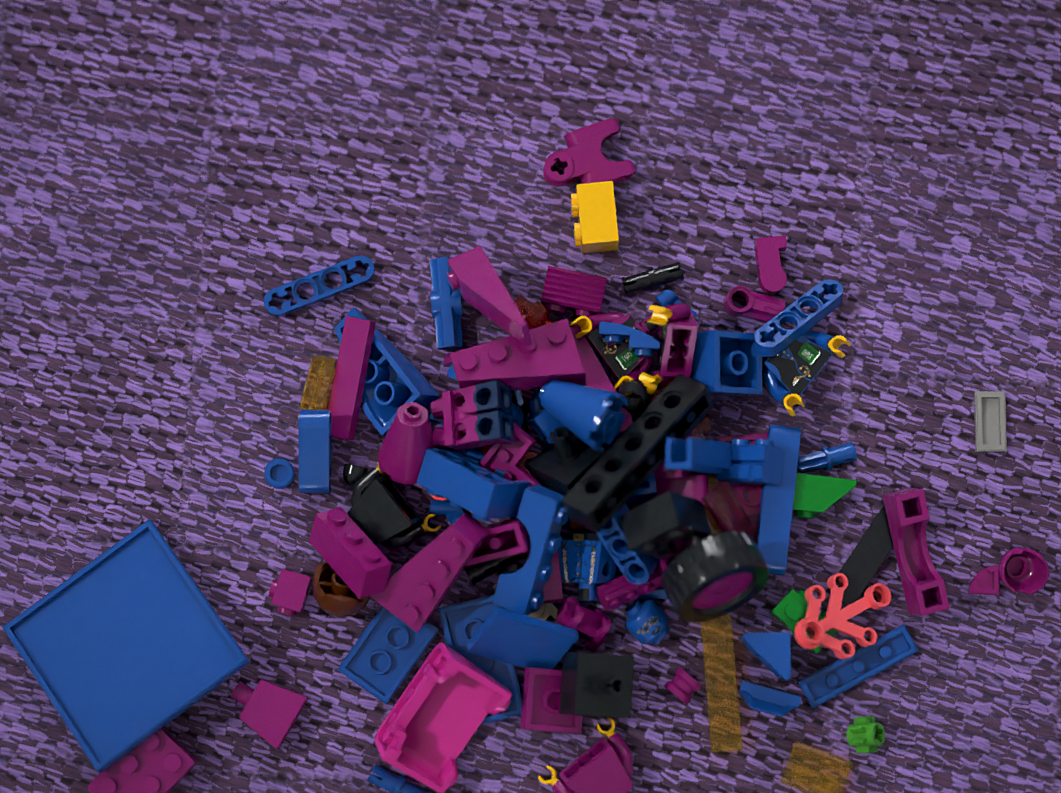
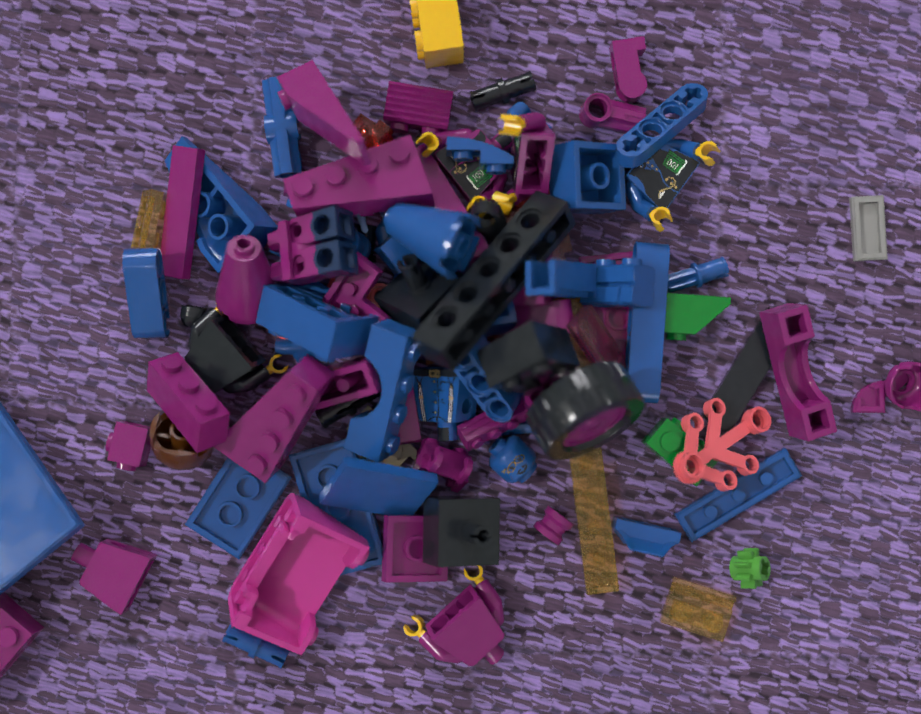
camera: 10 degrees left, 5 degrees up
(279, 473) = (113, 318): blue tile -> none
(317, 280) = (143, 109): blue beam -> none
(771, 650) = (649, 484): blue slope -> none

